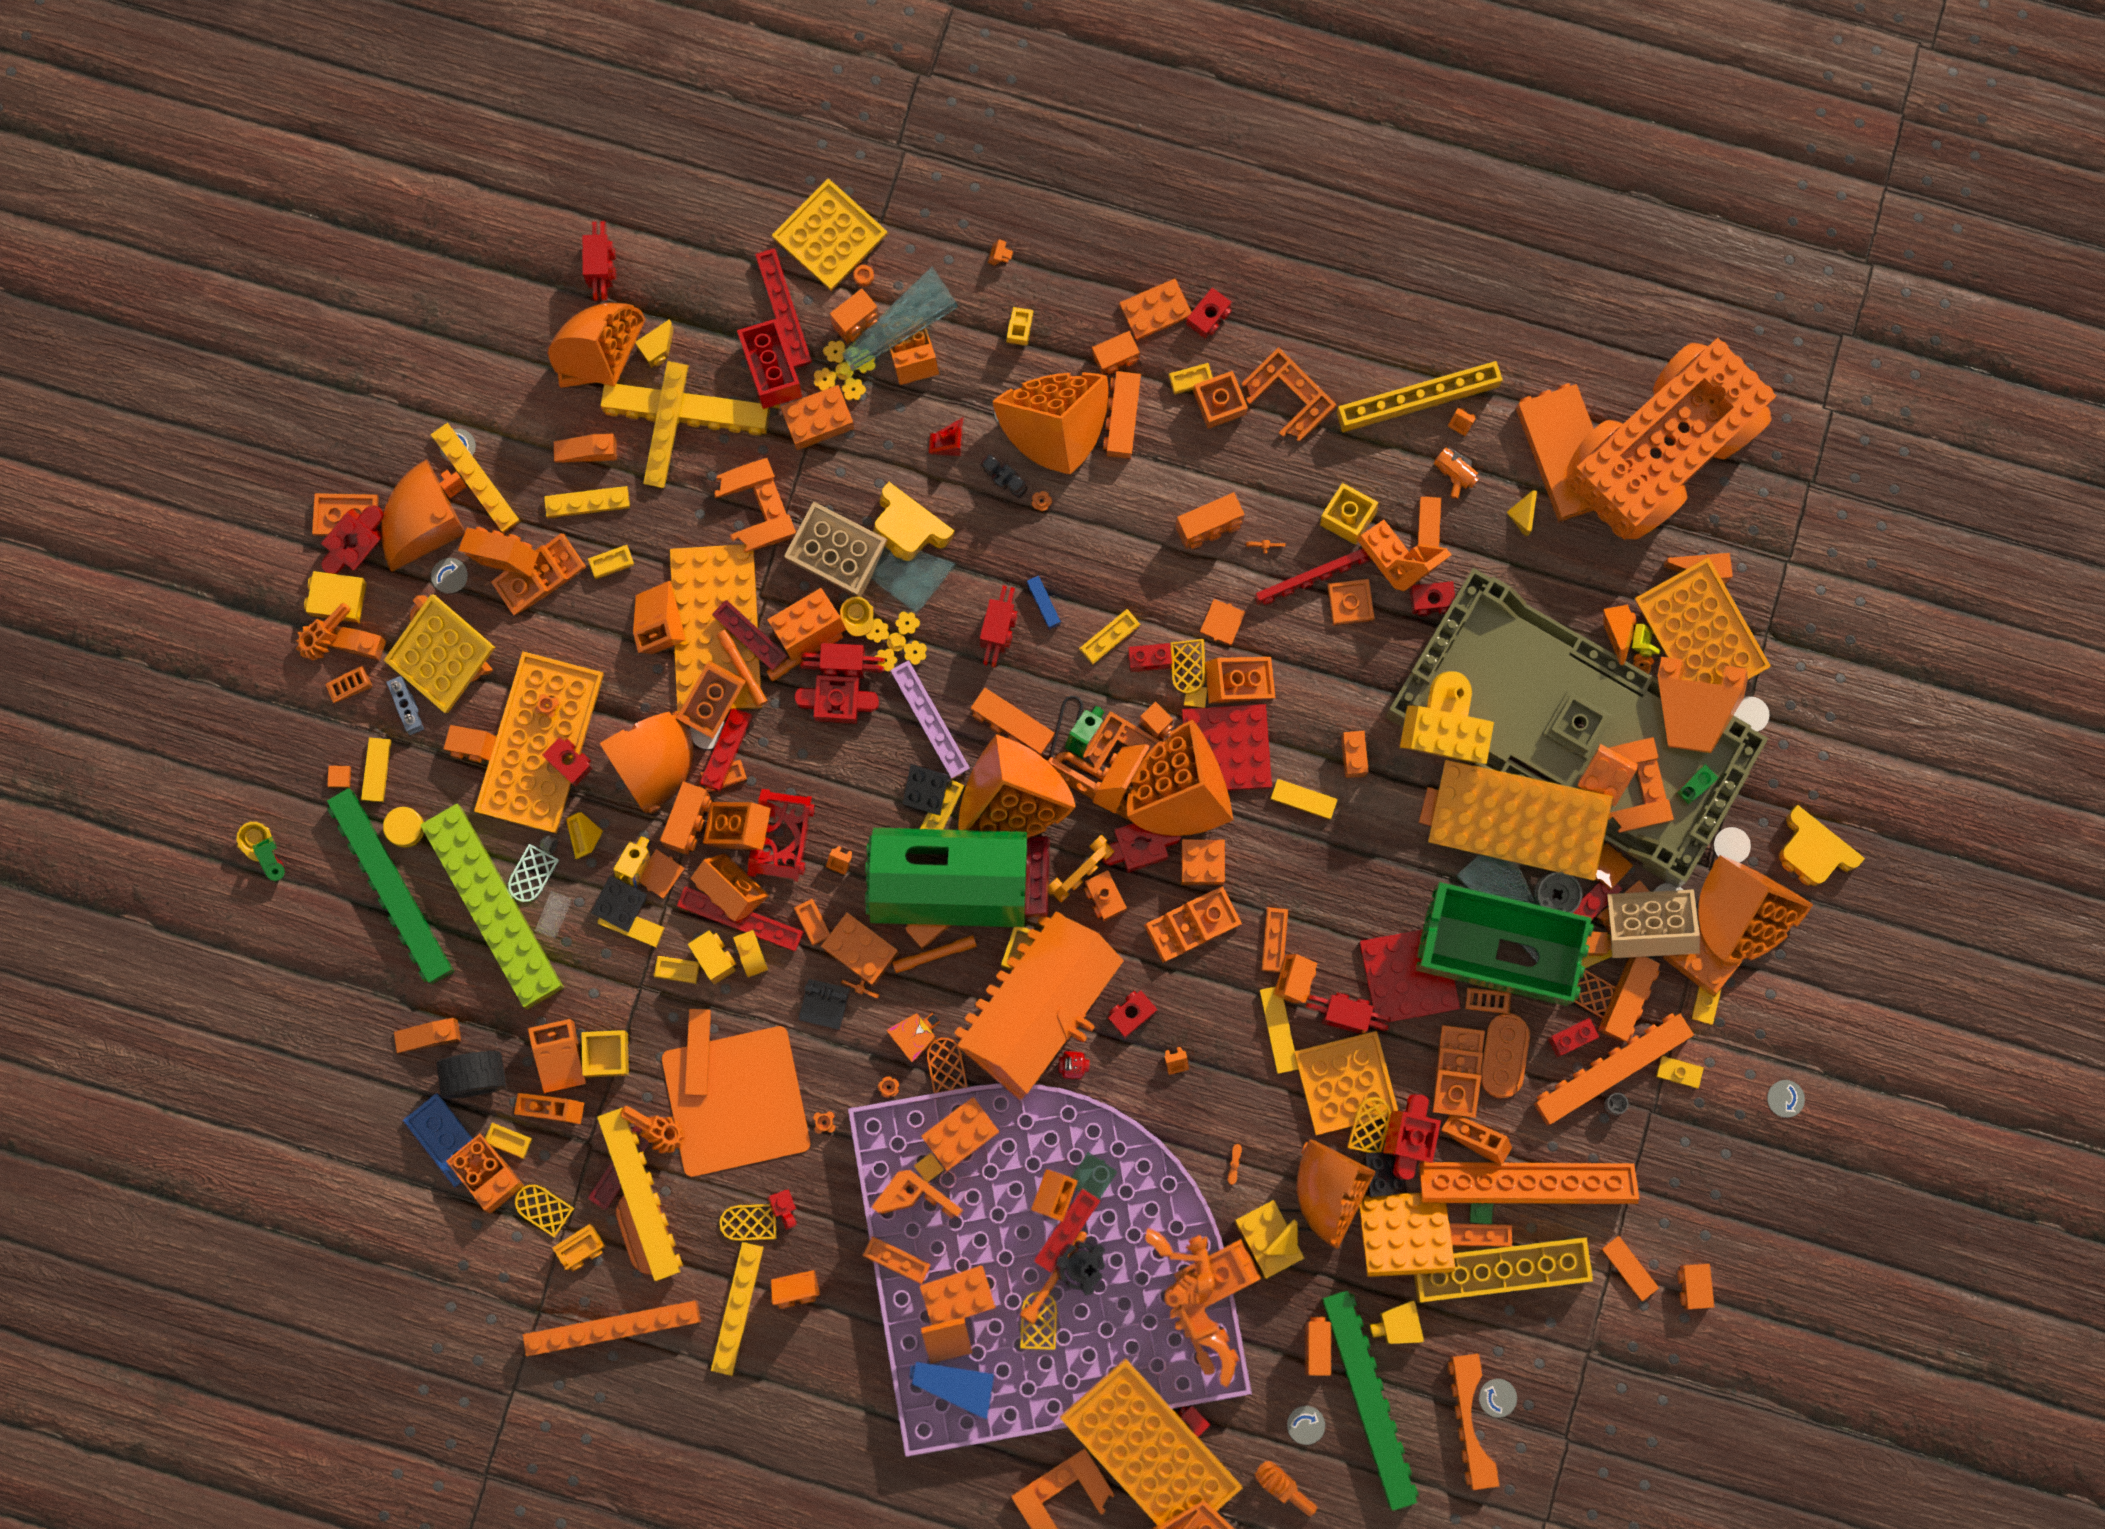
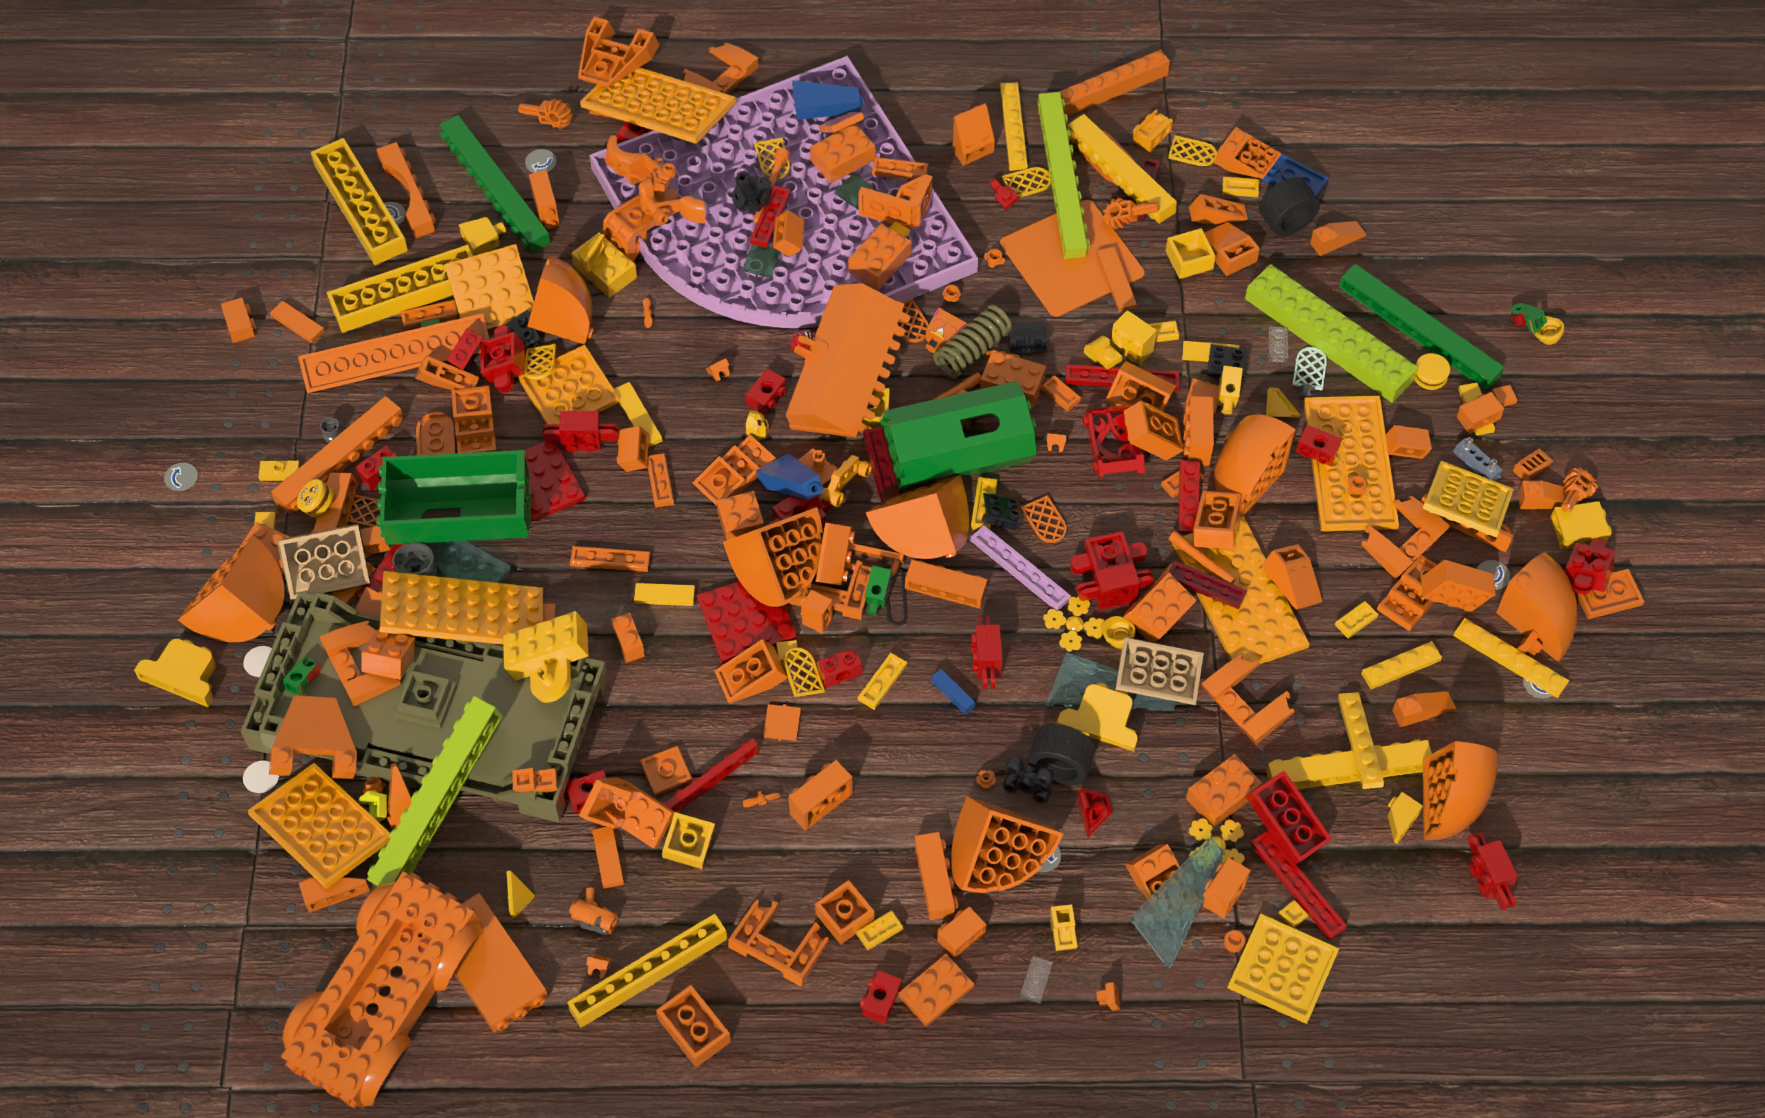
camera: 165 degrees right, 20 degrees down
(378, 754) = (1480, 412): none -> orange brick
(538, 614) = (1396, 559): none -> orange wedge
(711, 1202) = (1062, 175): none -> lime brick
(799, 284) = (1293, 914): none -> yellow tile
(882, 766) = (1053, 509): none -> orange window
(911, 992) = (980, 324): none -> olive piece
(957, 1244) = (850, 190): none -> clear green piece
(964, 487) = (1064, 751): none -> black tyre
(1060, 289) = (1036, 979): none -> clear plate
(1139, 888) = (790, 478): none -> blue slope
(1153, 971) = (757, 426): none -> yellow rock
(1350, 859) = (610, 558): none -> orange tile
(1390, 332) = (693, 1026): none -> orange brick
(1451, 1160) = (464, 349): none -> red brick
(1498, 593) = (526, 780): none -> orange slope
(1532, 1416) = (359, 201): none -> yellow brick
(1587, 611) = (437, 792): none -> lime brick
(1649, 1008) = (315, 498): none -> yellow head

